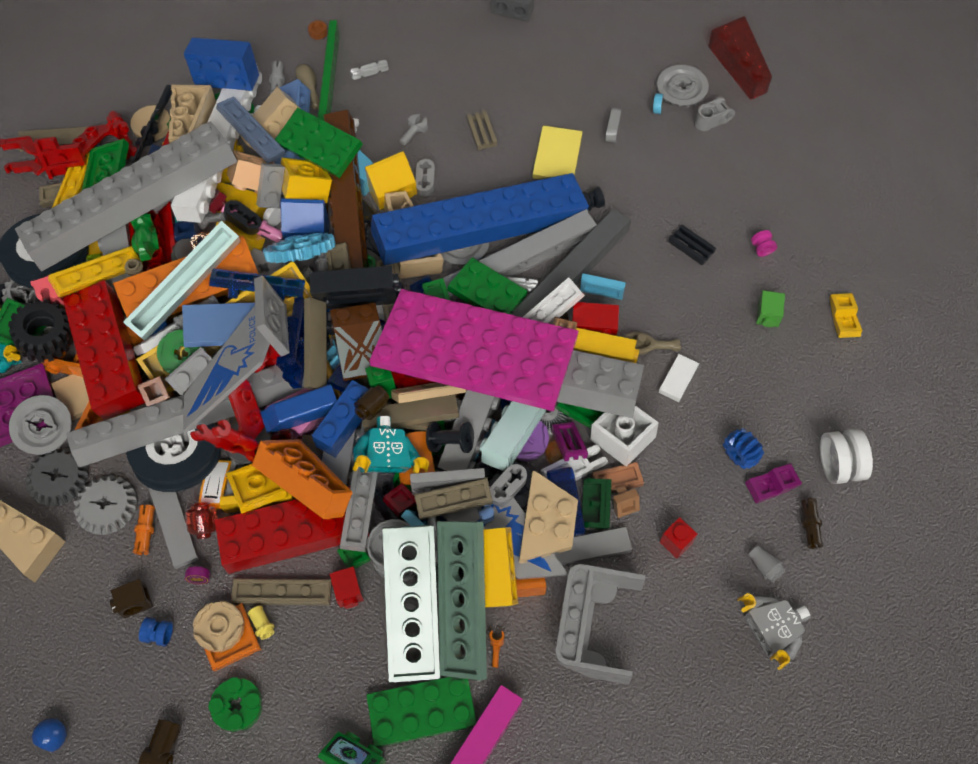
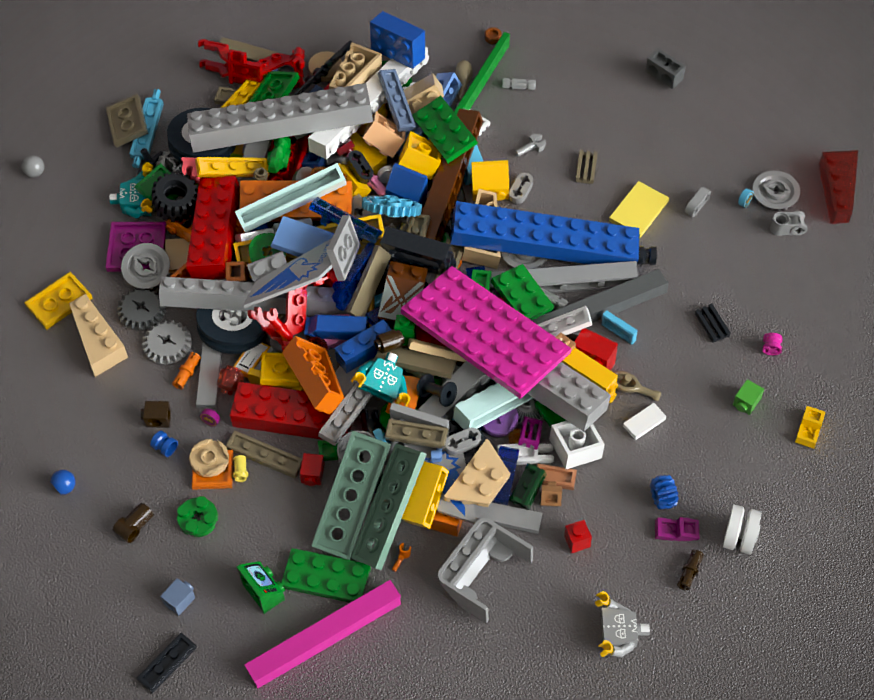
camera: 25 degrees right, 5 degrees down
(270, 185) = (391, 149): light grey plate -> none
(276, 77) = (441, 63): light grey pin -> none
(399, 500) = (378, 420): dark red plate -> none
(768, 565) = (638, 586): light grey cone -> none

